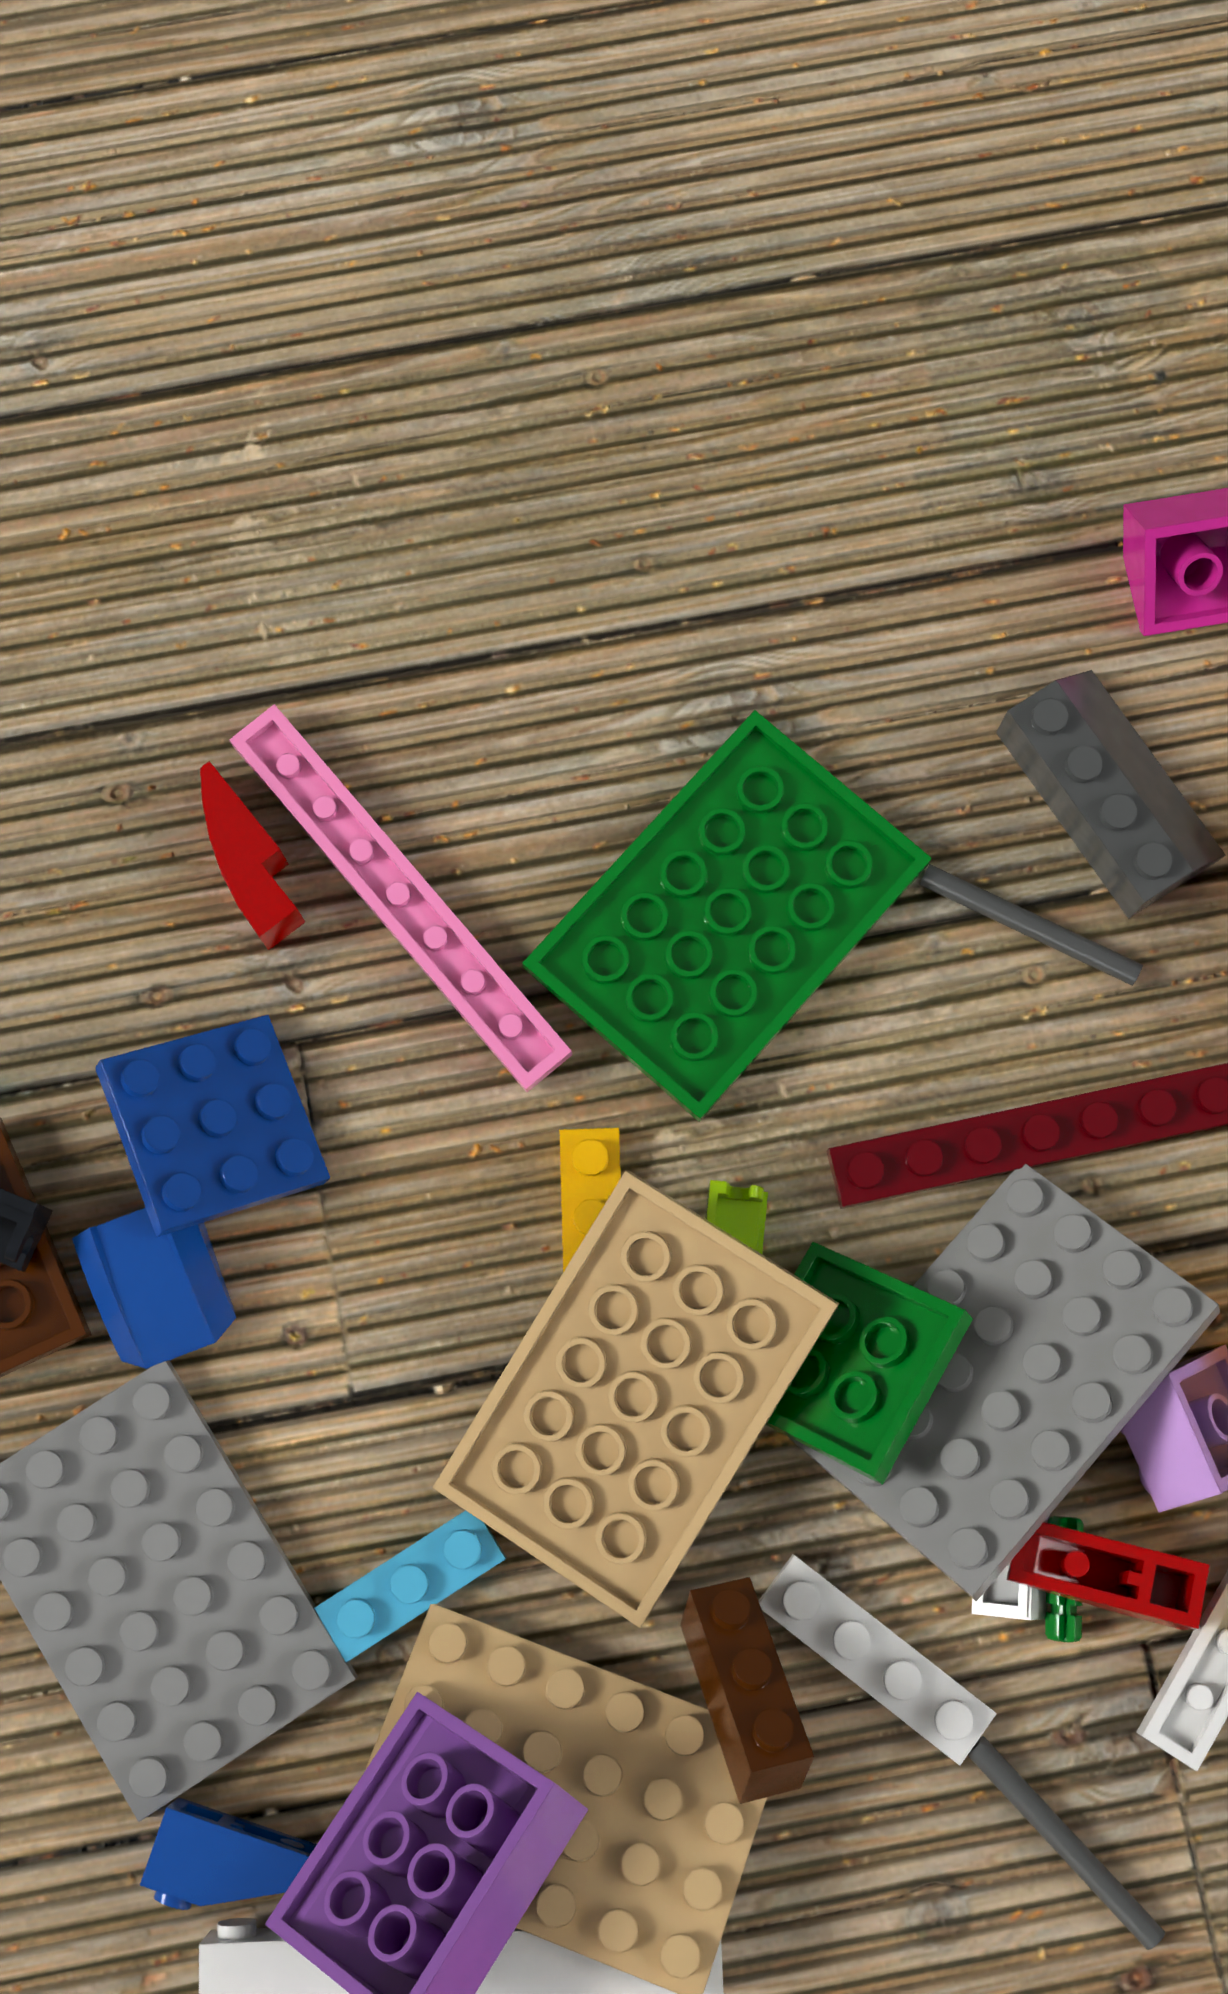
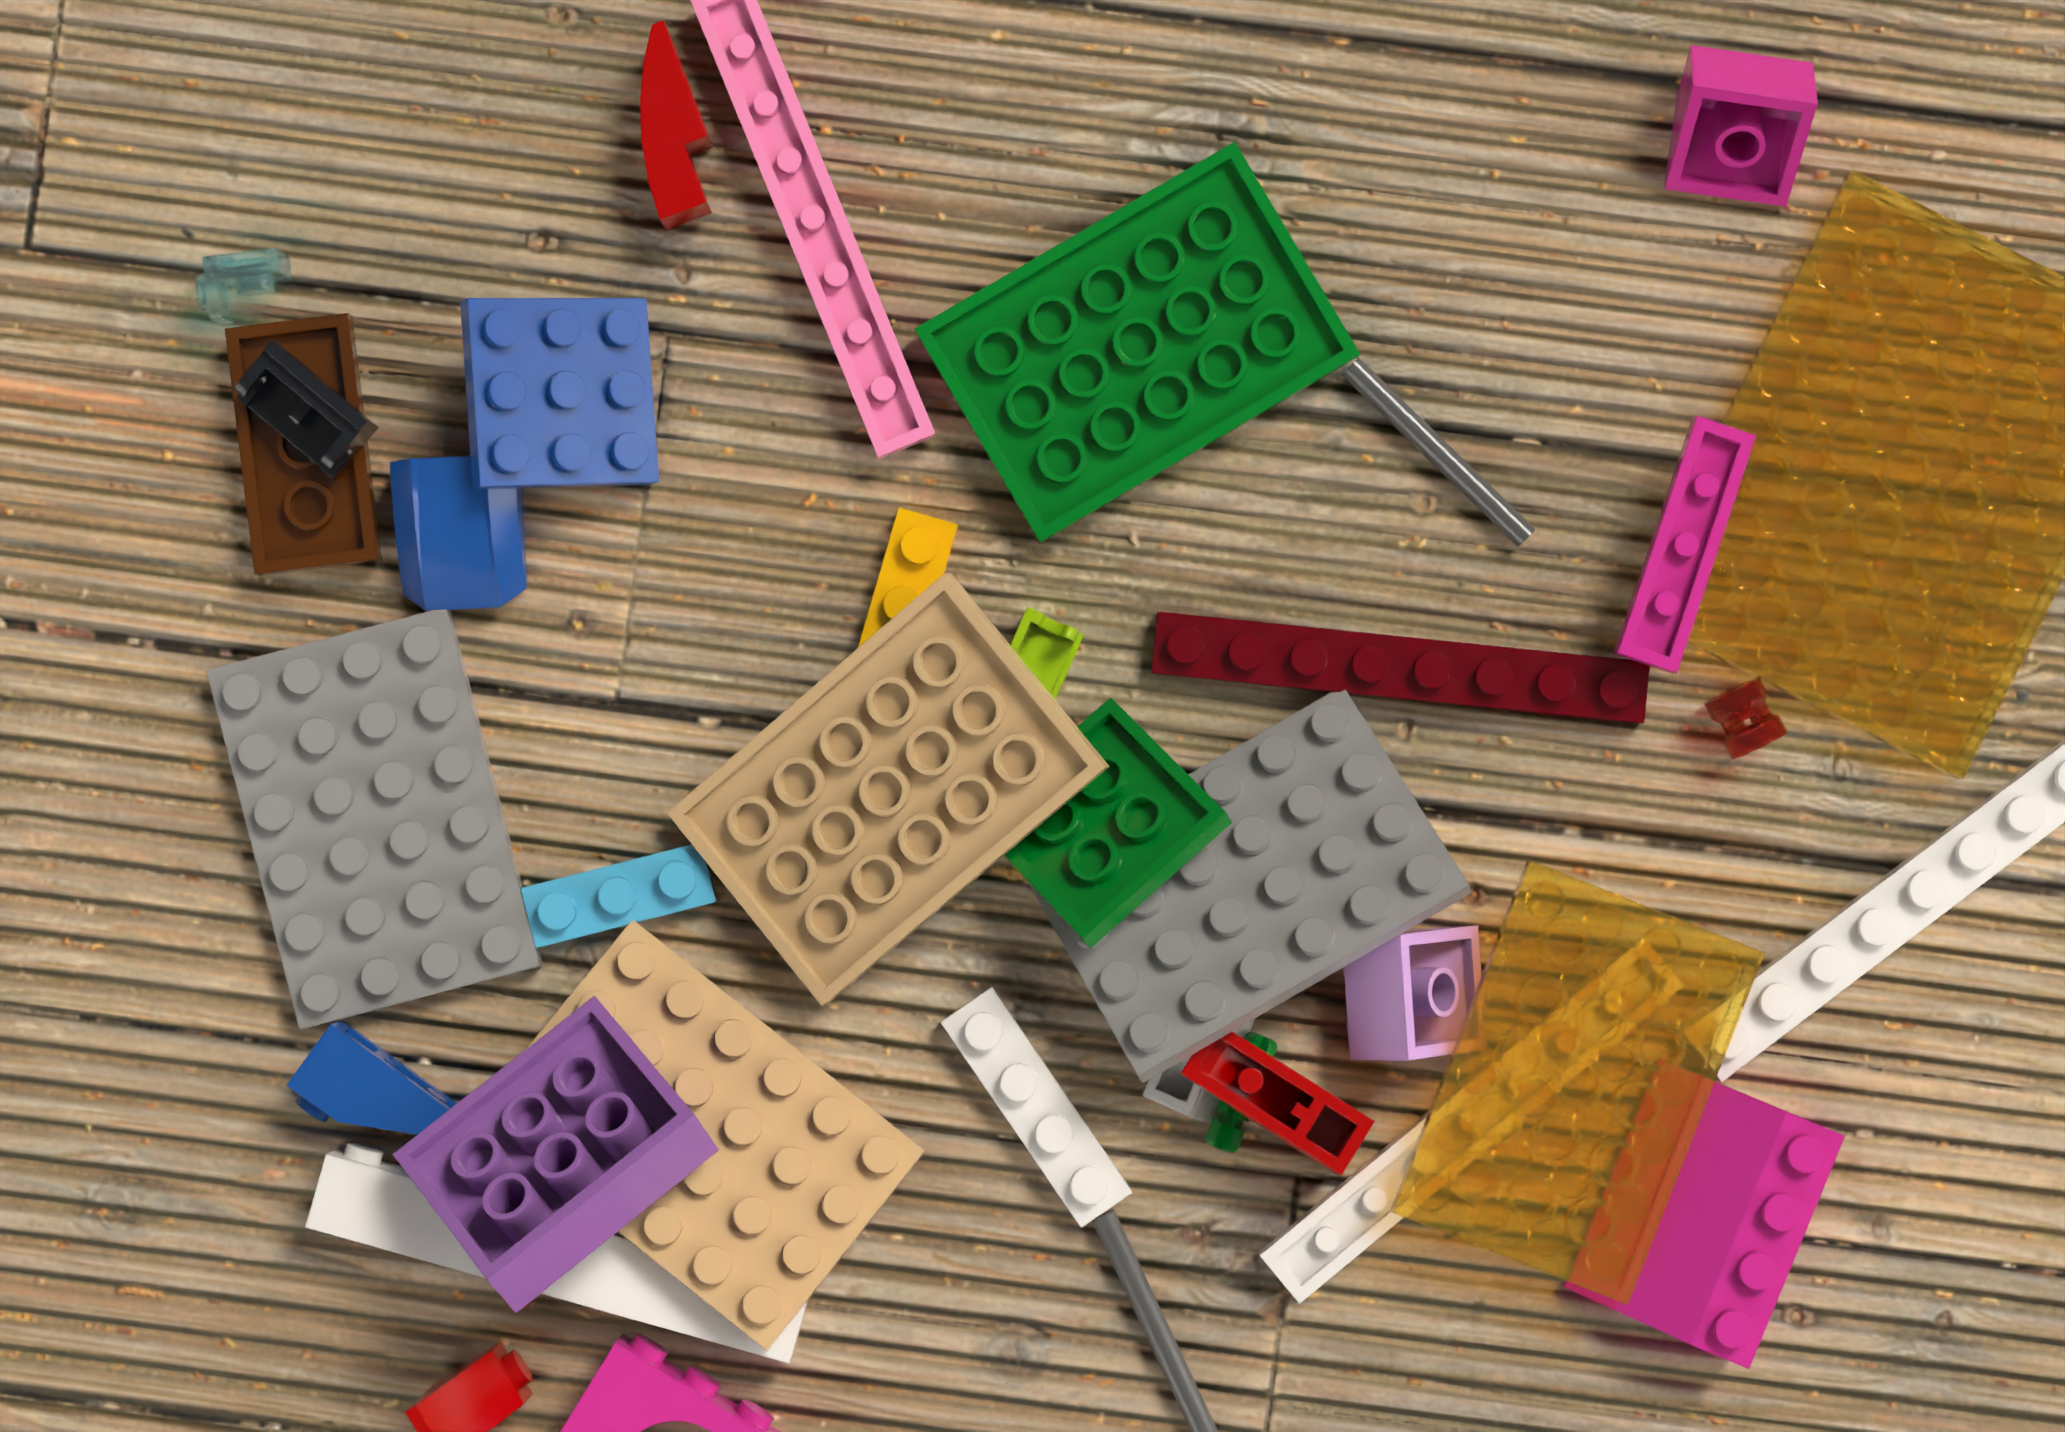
camera: 15 degrees right, 10 degrees up
(746, 1690) = (900, 1092): reddish brown brick -> none
(1108, 791) = (1568, 340): dark grey slope -> none

